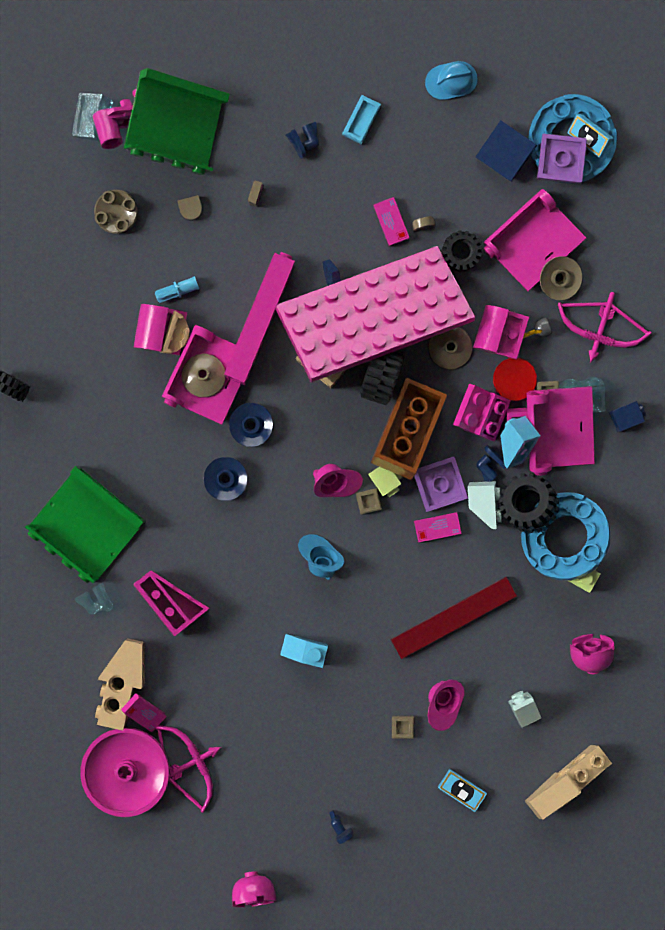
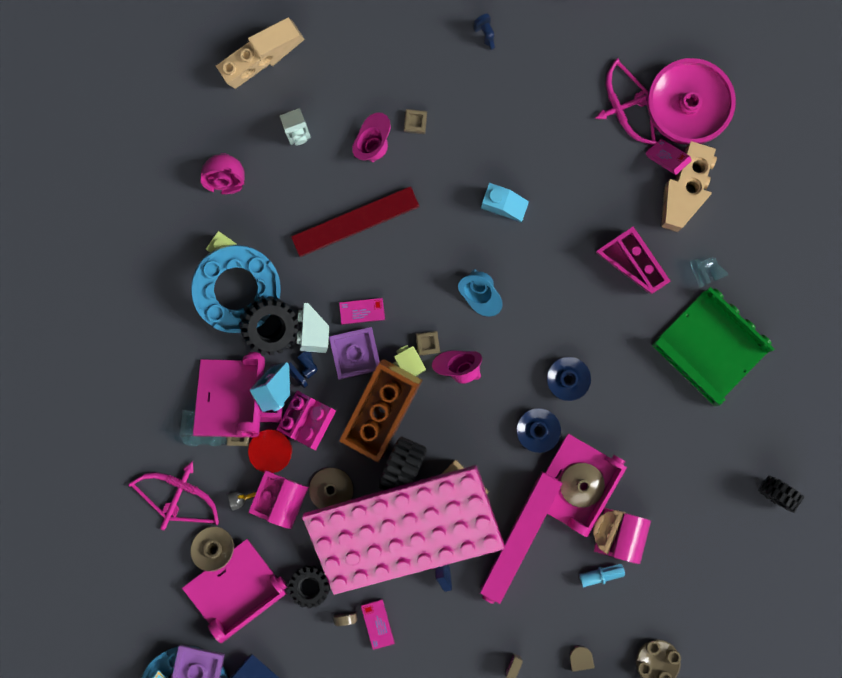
camera: 175 degrees left, 5 degrees down
(462, 790) = (363, 56): tile -> none
(627, 416) = (161, 403): dark blue brick -> none

